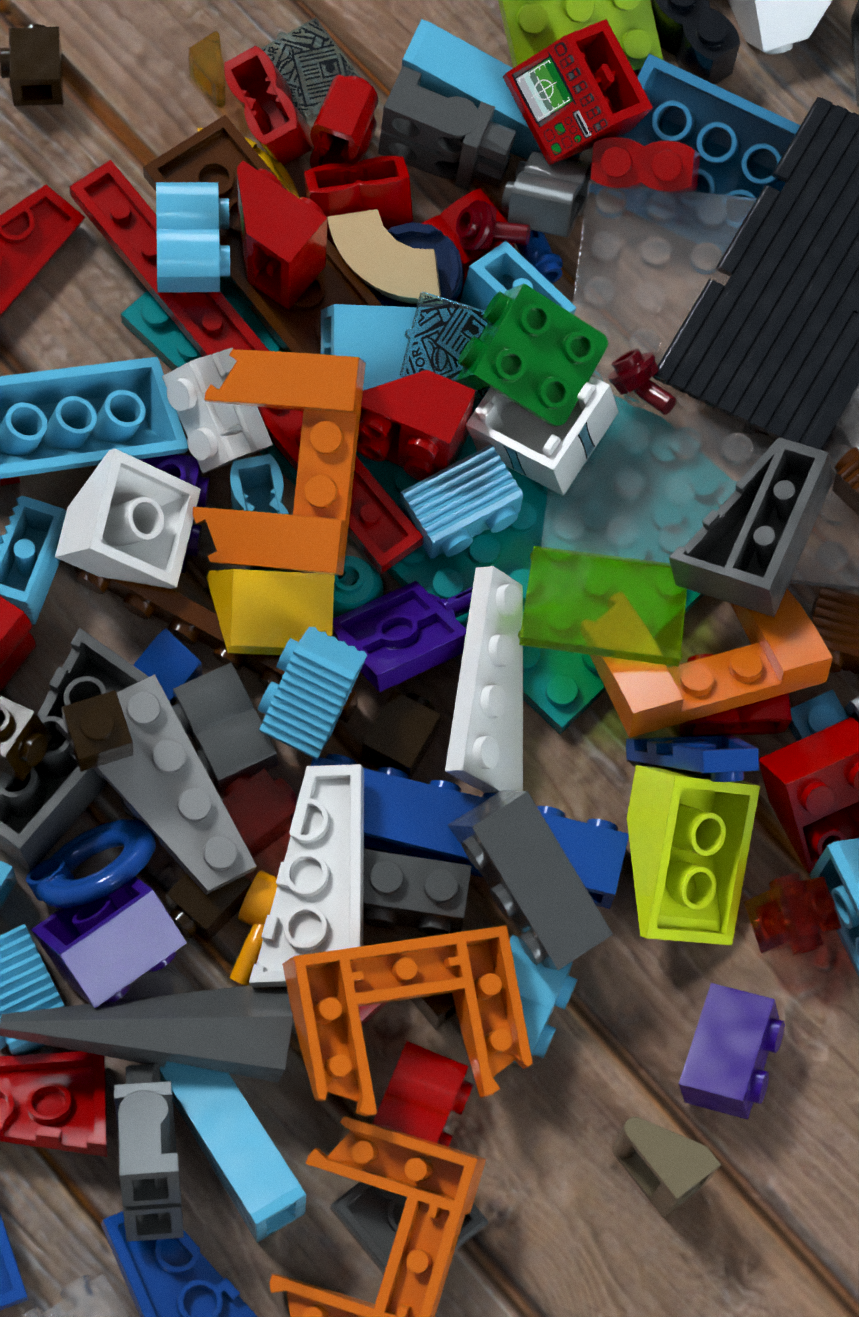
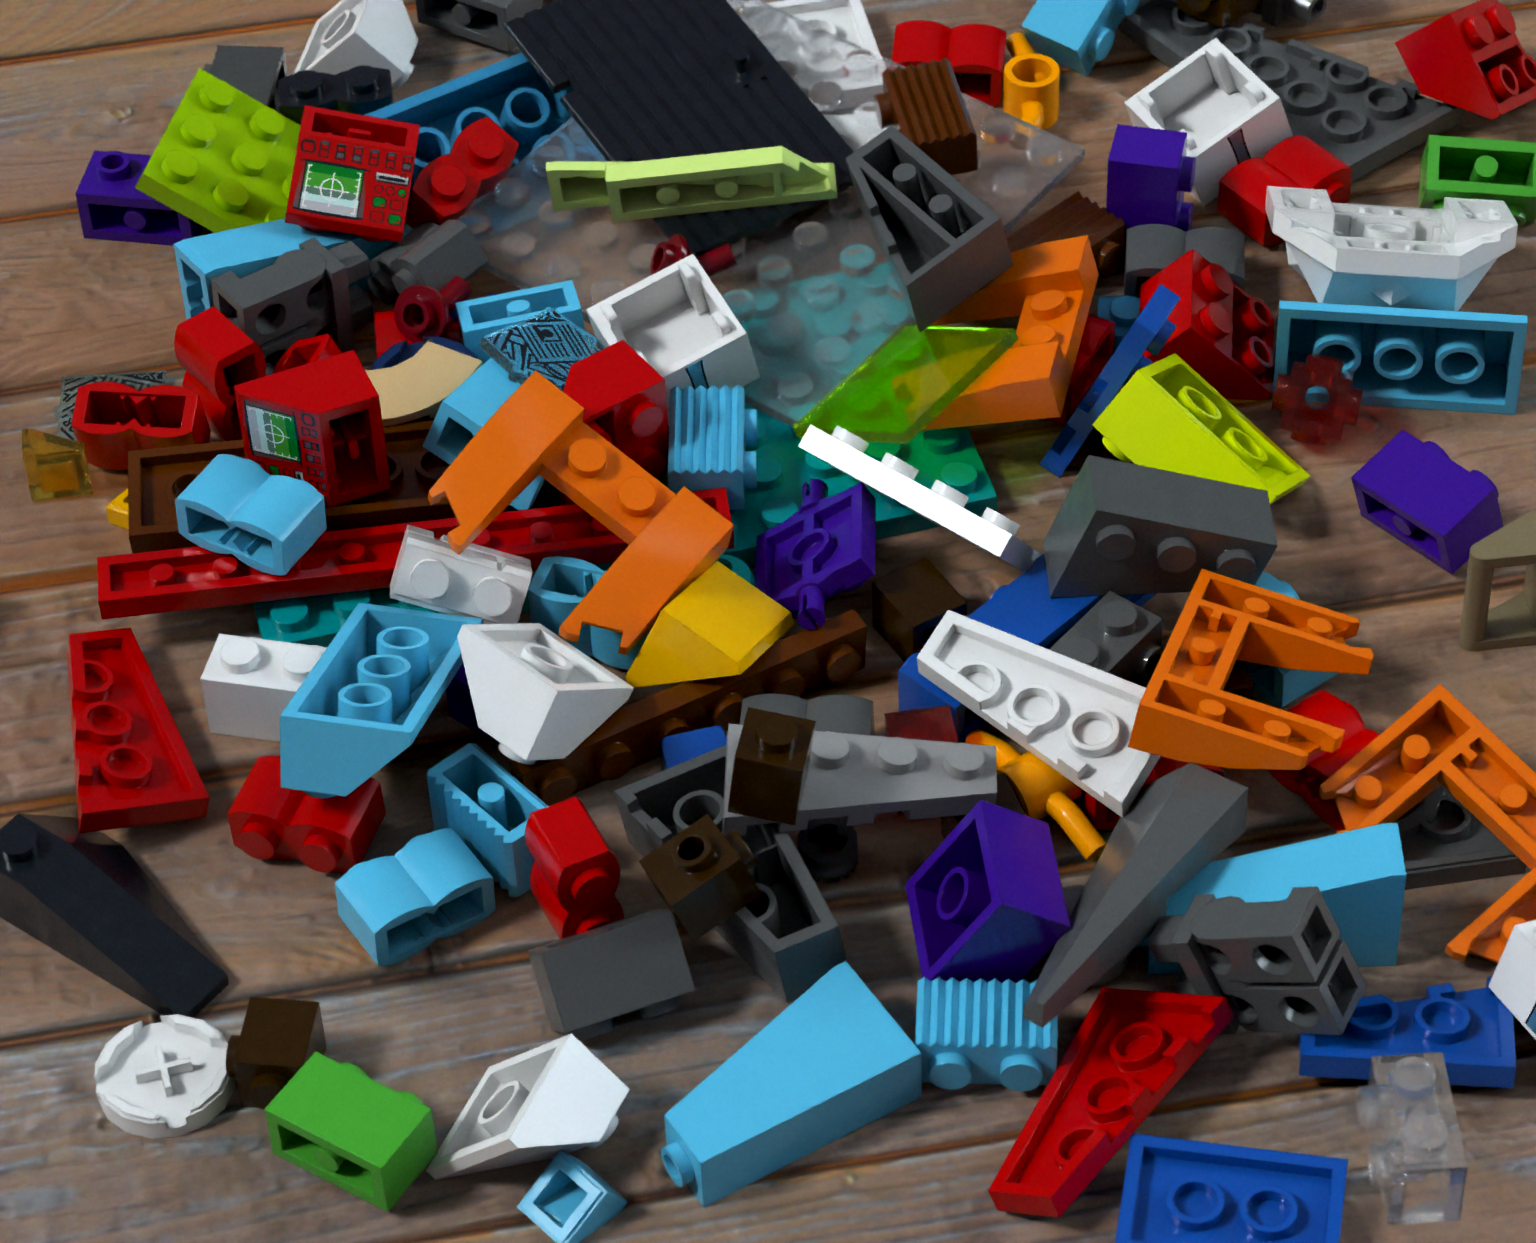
camera: 50 degrees left, 25 degrees down
(53, 878) = (878, 951): blue piece -> none
(73, 328) = (252, 683): none -> white brick
(311, 691) = (838, 620): medium azure brick -> none
(533, 354) = (609, 282): green bracket -> none
(717, 324) = (690, 183): none -> yellowish green wedge

